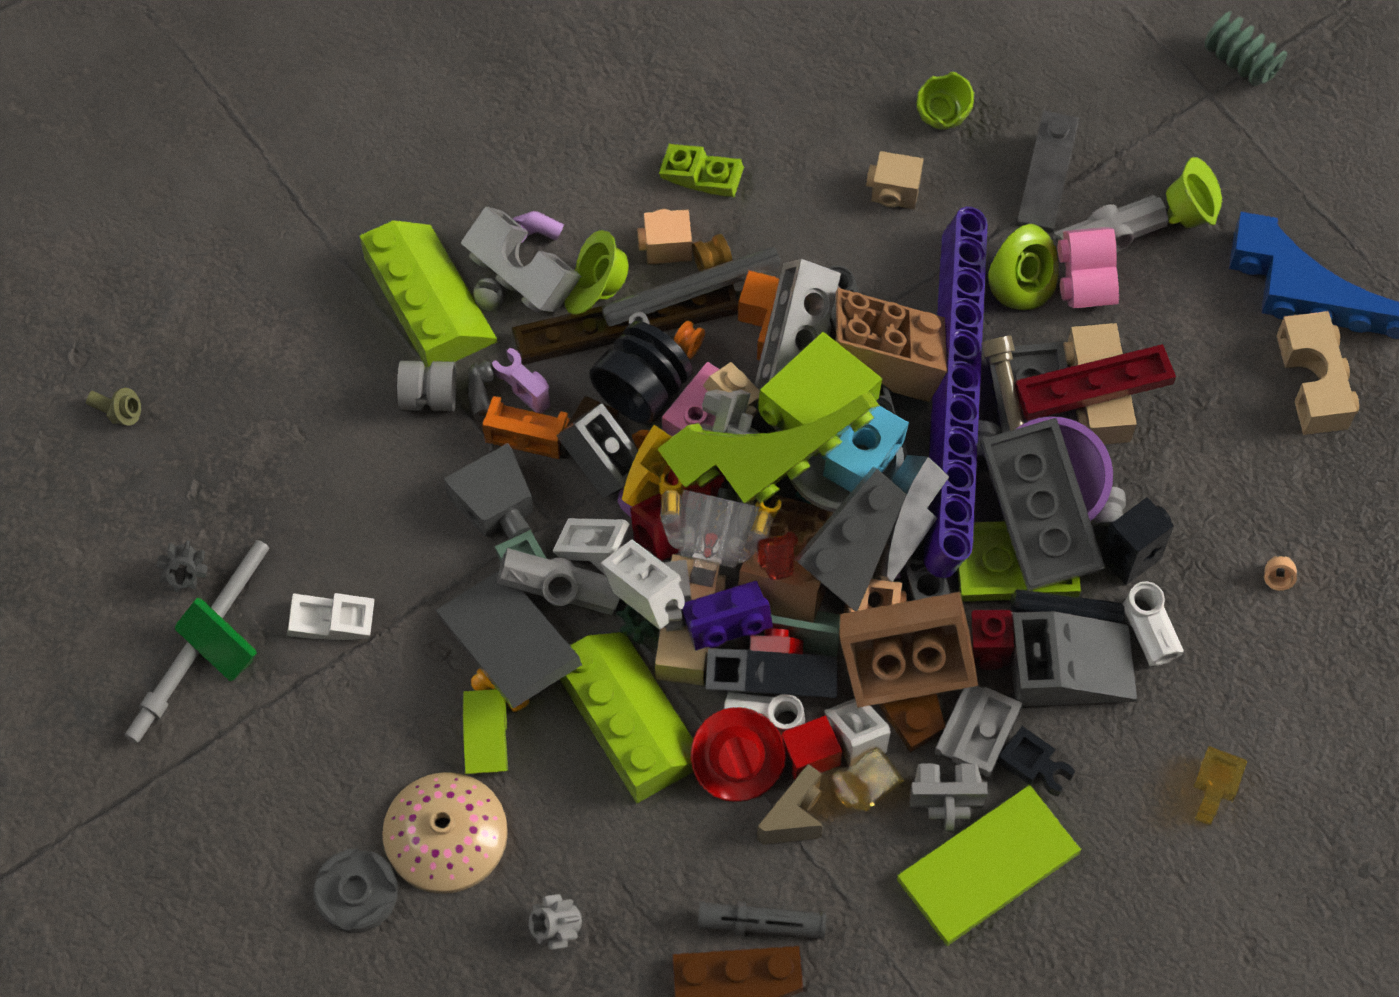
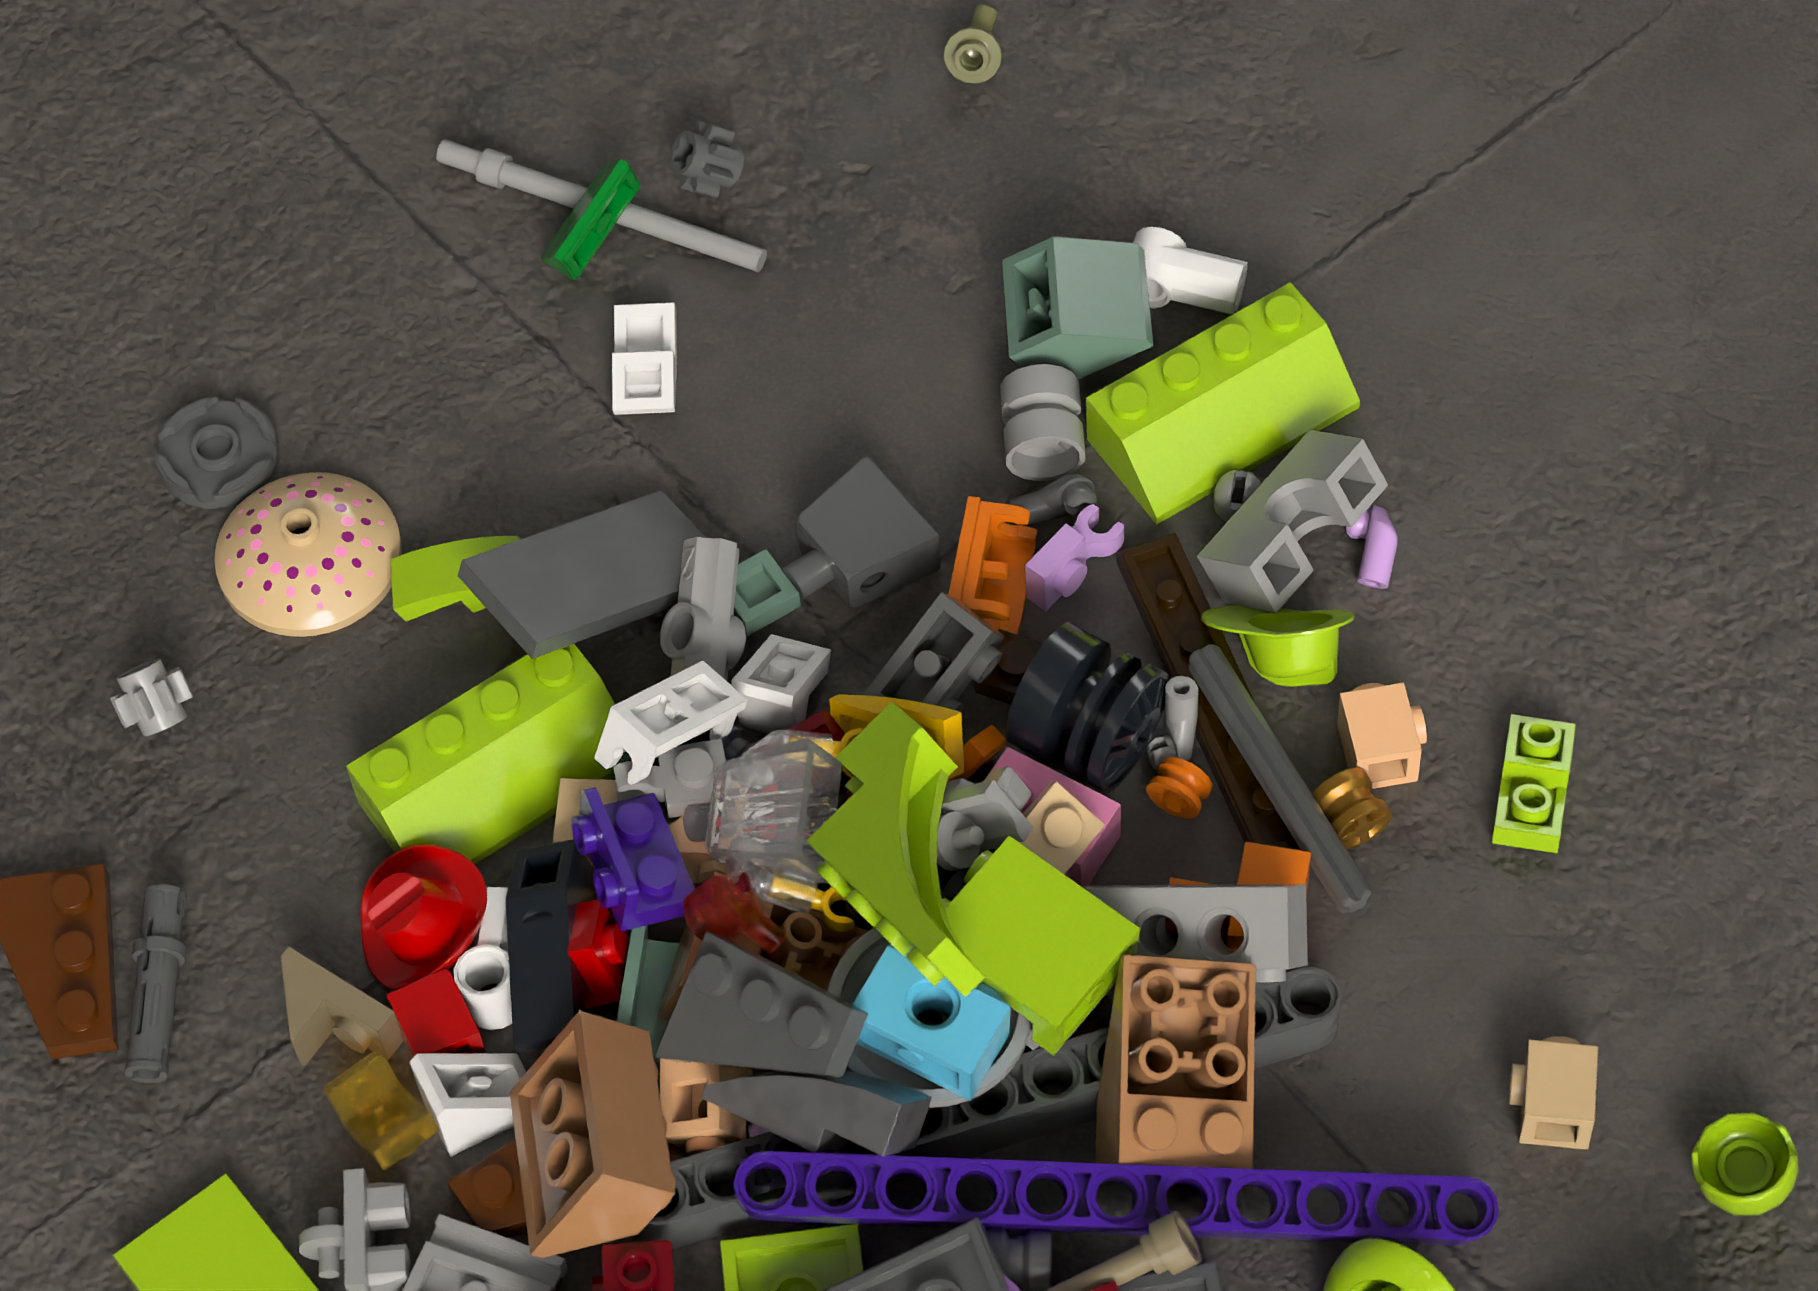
camera: 90 degrees right, 5 degrees down
(323, 310) = (1189, 274): none -> white piece
(351, 353) = (1077, 304): none -> sand green slope

